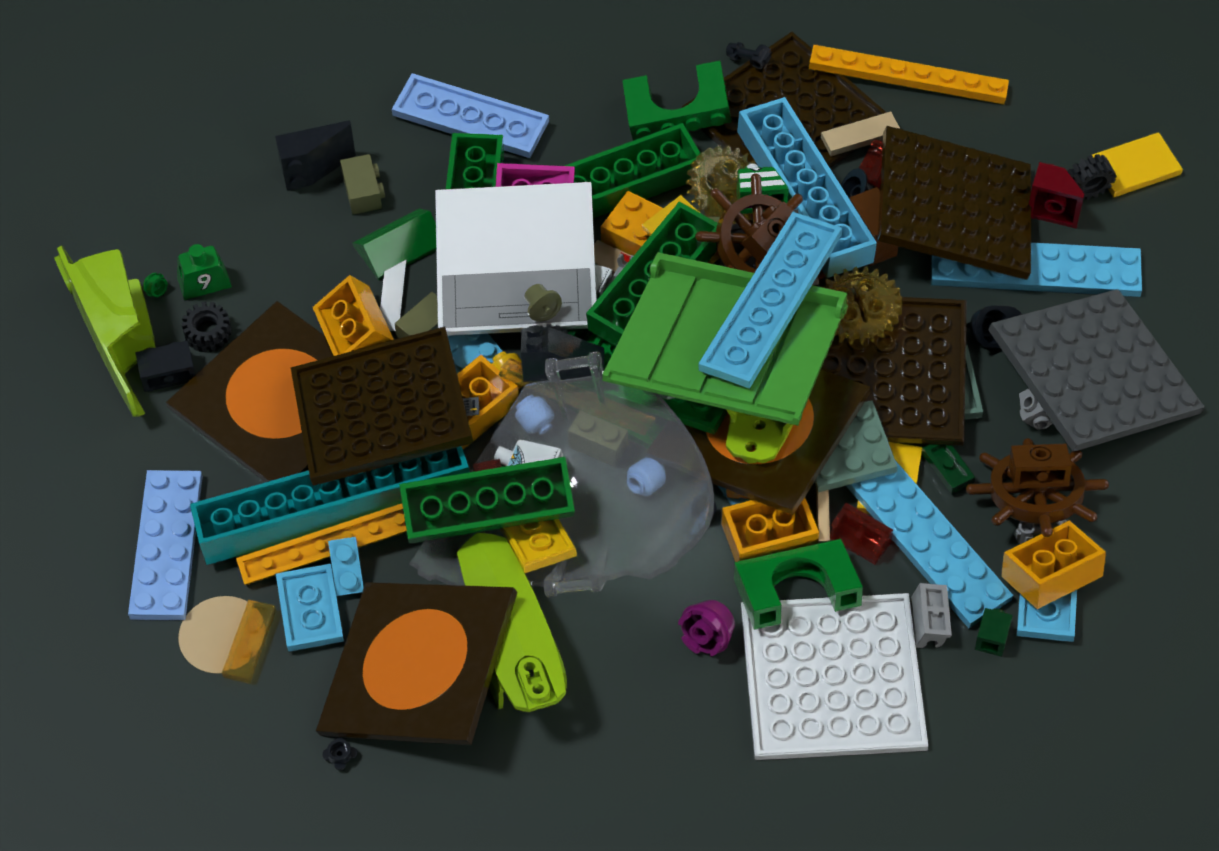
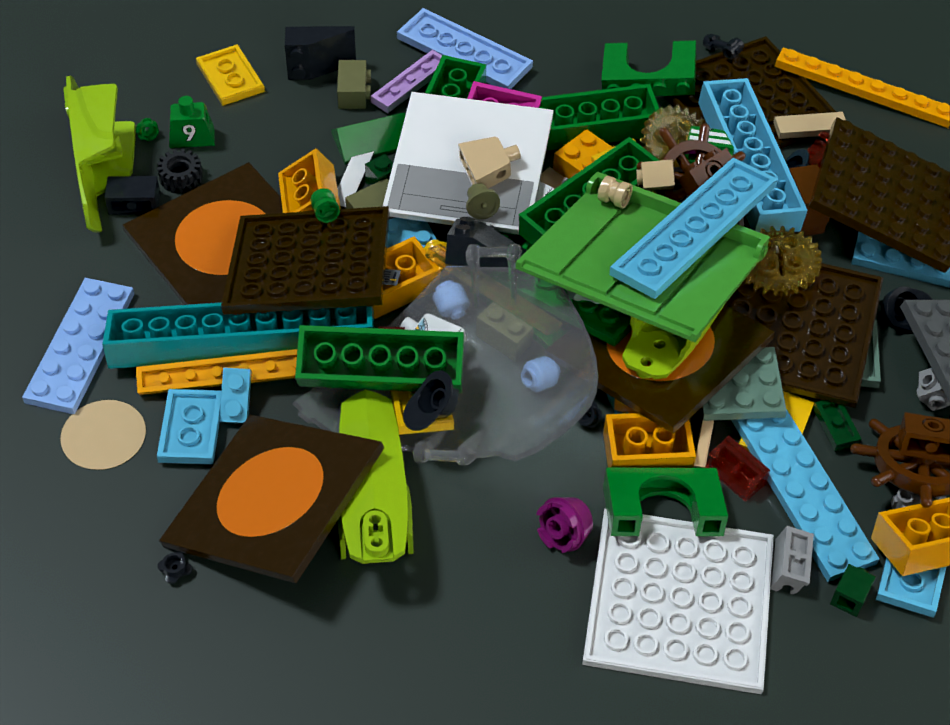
camera: 10 degrees right, 5 degrees down
(222, 198) = (230, 75): none -> yellow tile
(249, 641) = (124, 445): clear yellow tile -> none
(380, 341) = (324, 205): none -> green wheel
(421, 168) = (408, 81): none -> lavender plate
(421, 284) = (378, 169): none -> dark green brick
(537, 256) = (487, 160): none -> tan torso
(549, 535) = (432, 400): none -> black piece
(681, 273) = (615, 192): none -> tan wheel
(718, 246) = (656, 175): none -> tan brick

